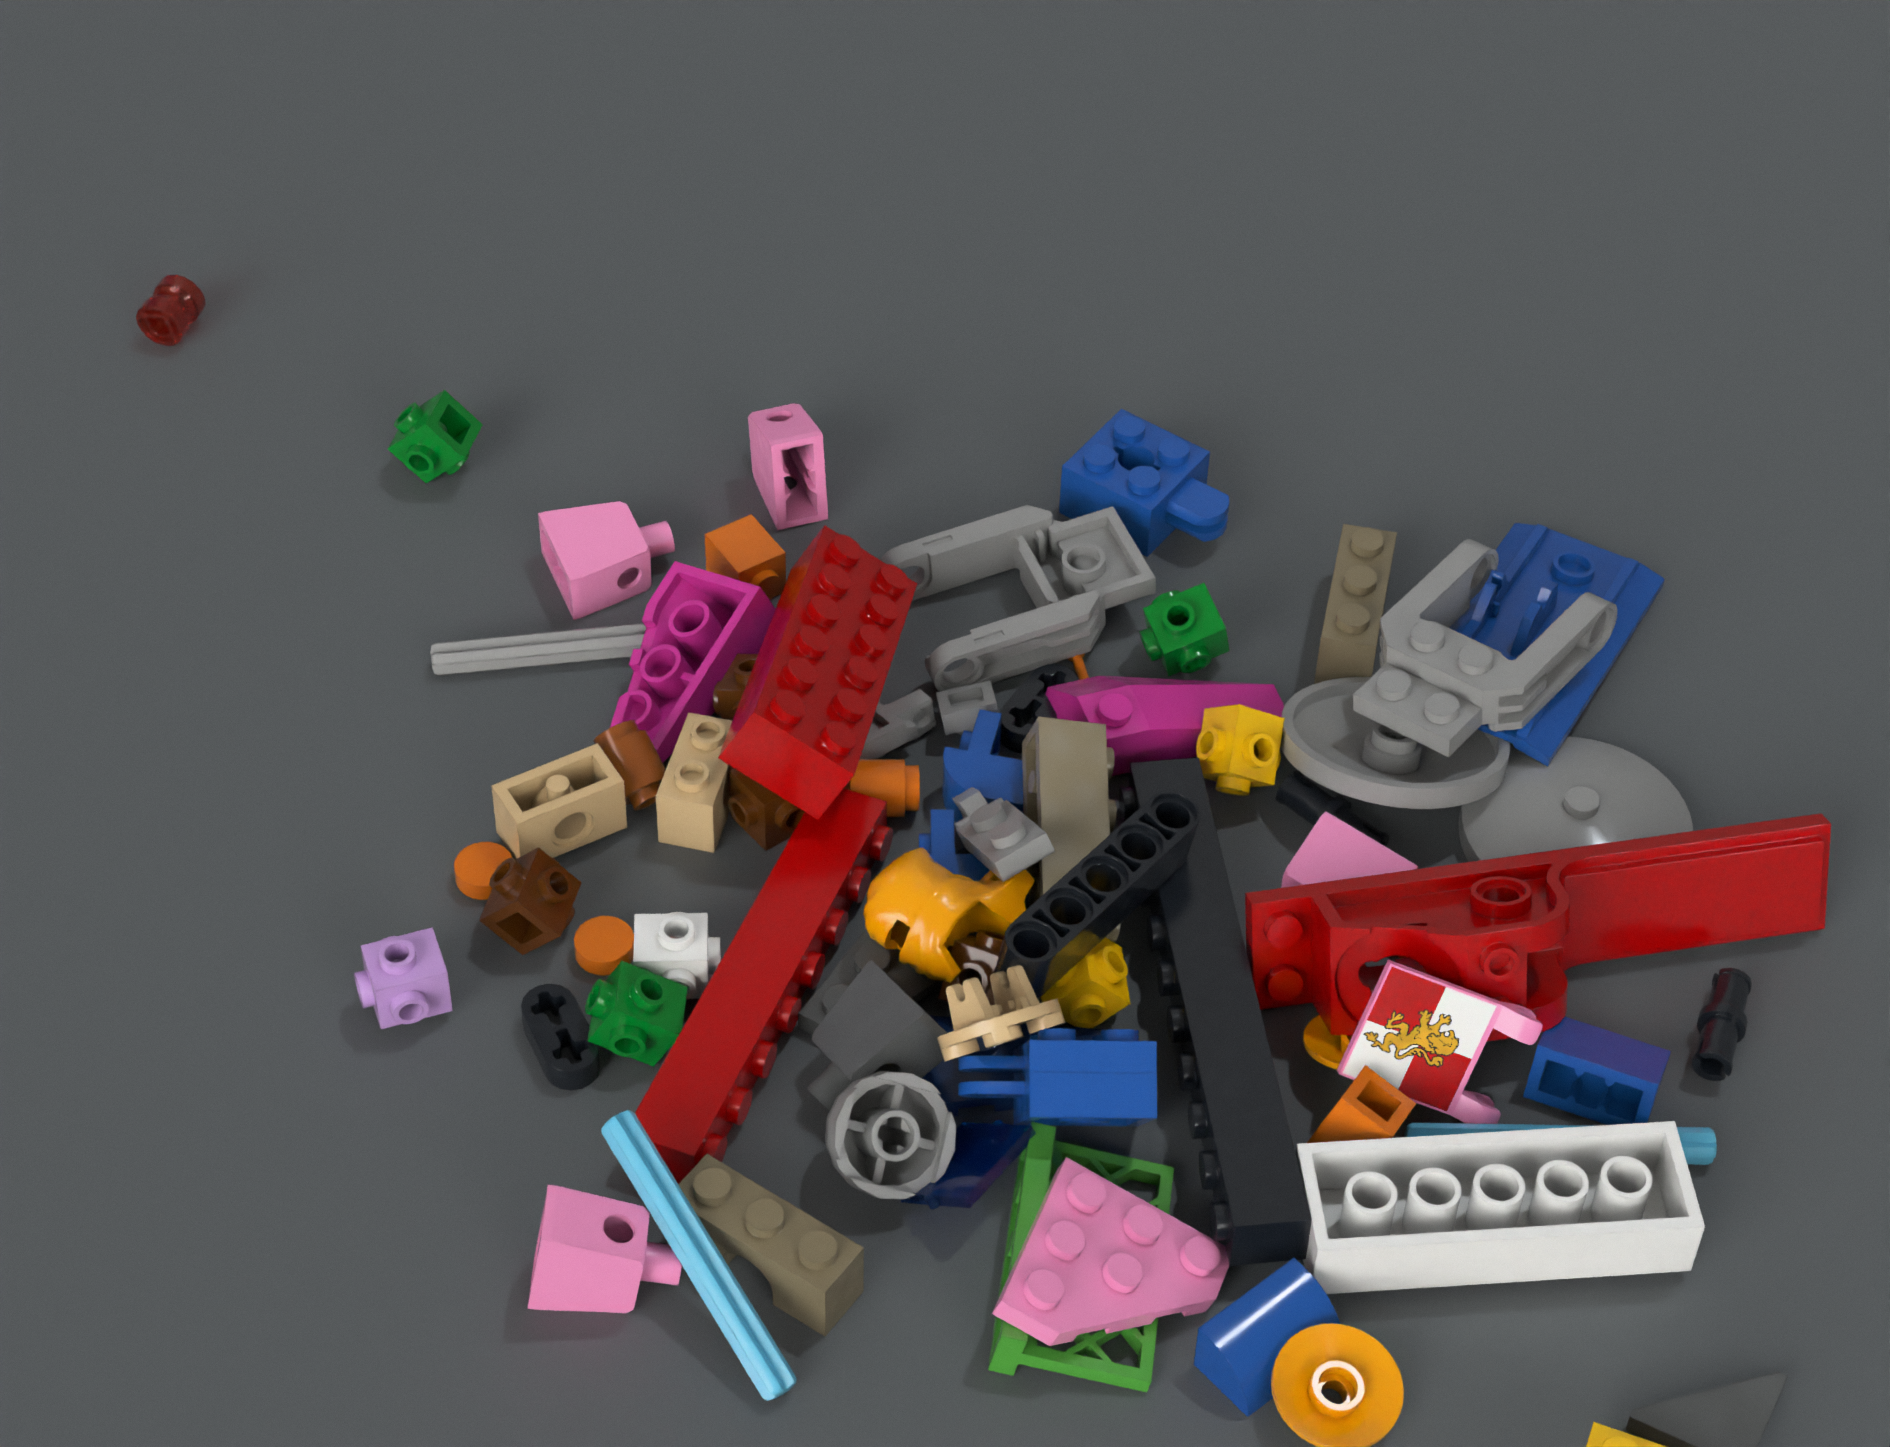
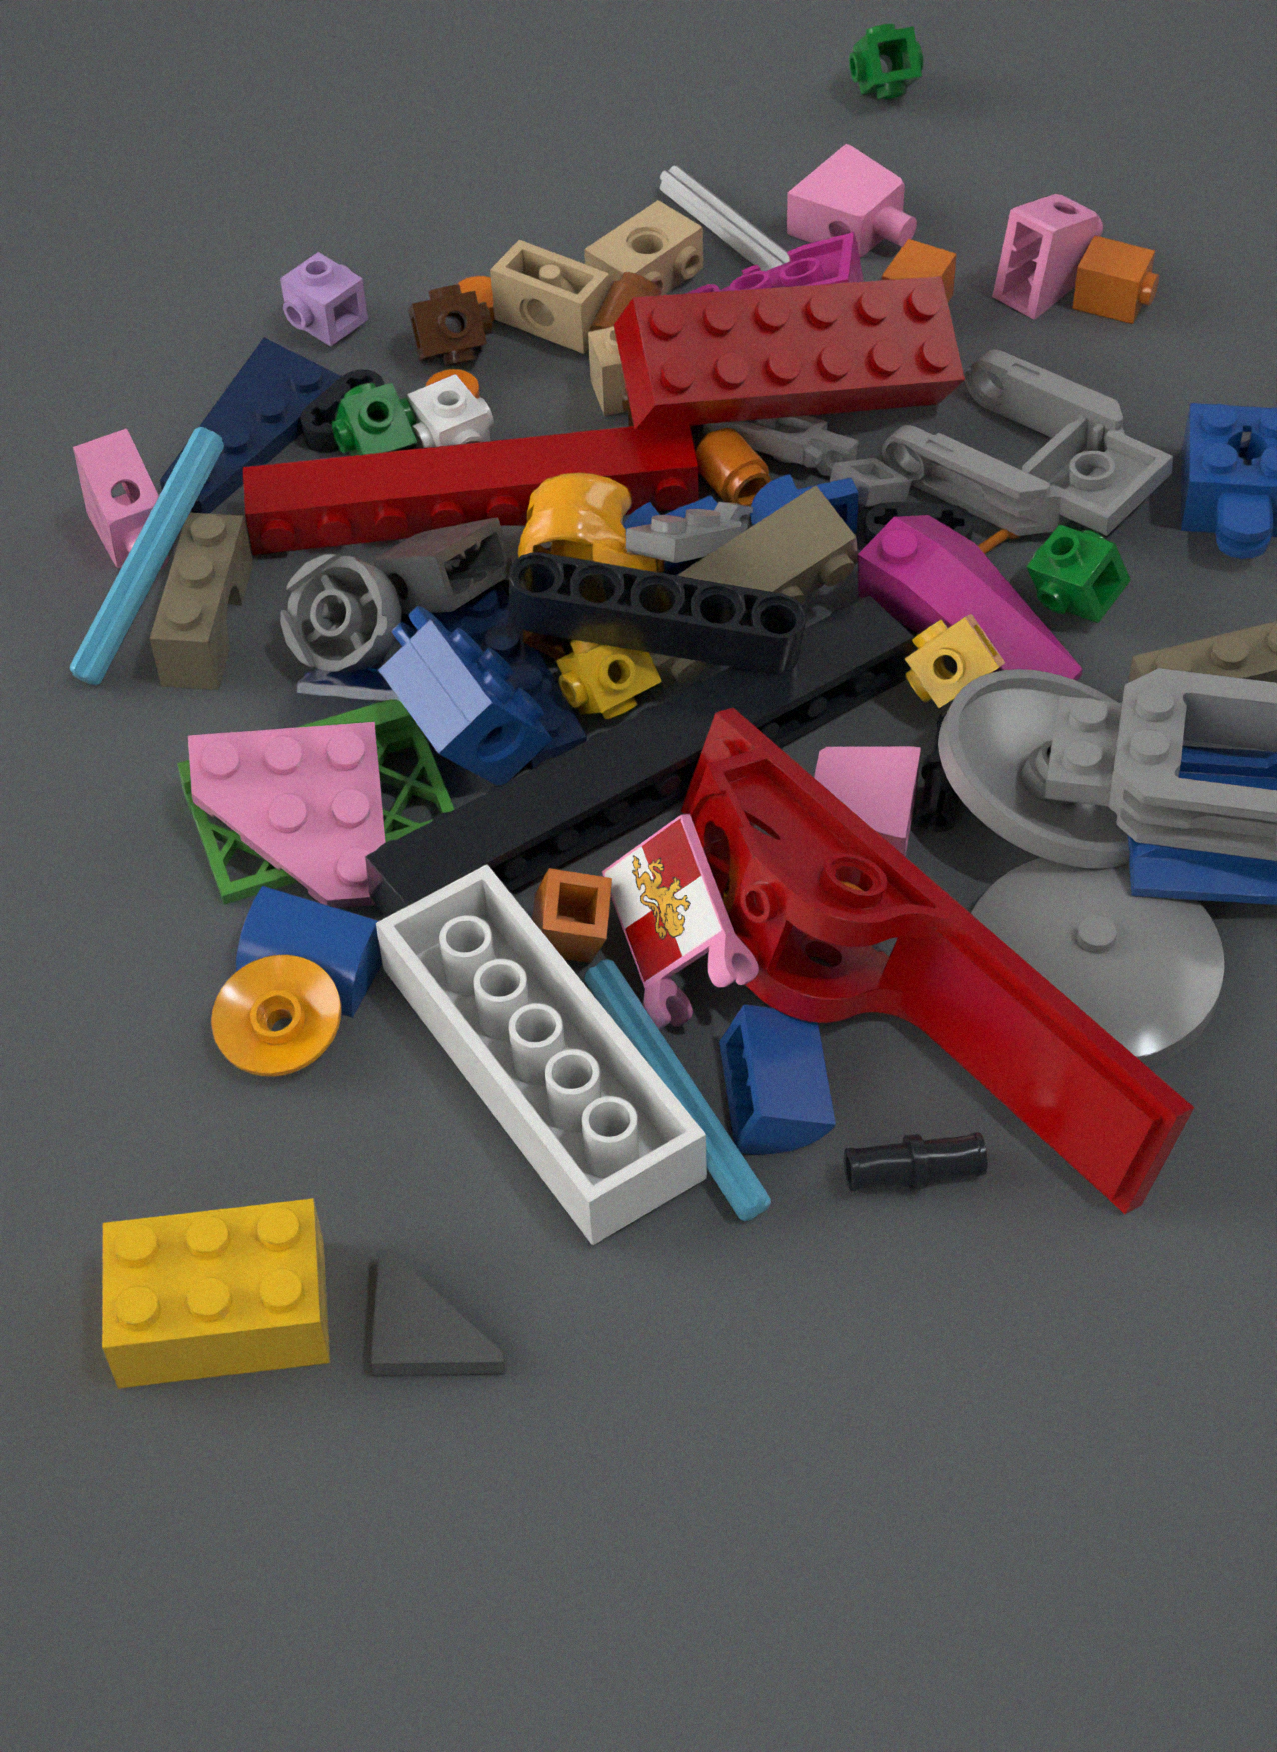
camera: 65 degrees right, 5 degrees up
(510, 1108) = (257, 416): none -> dark blue wing
(546, 712) = (653, 245): none -> tan brick
(851, 442) = (1115, 279): none -> orange brick
(997, 1023) = (430, 594): tan plate -> none

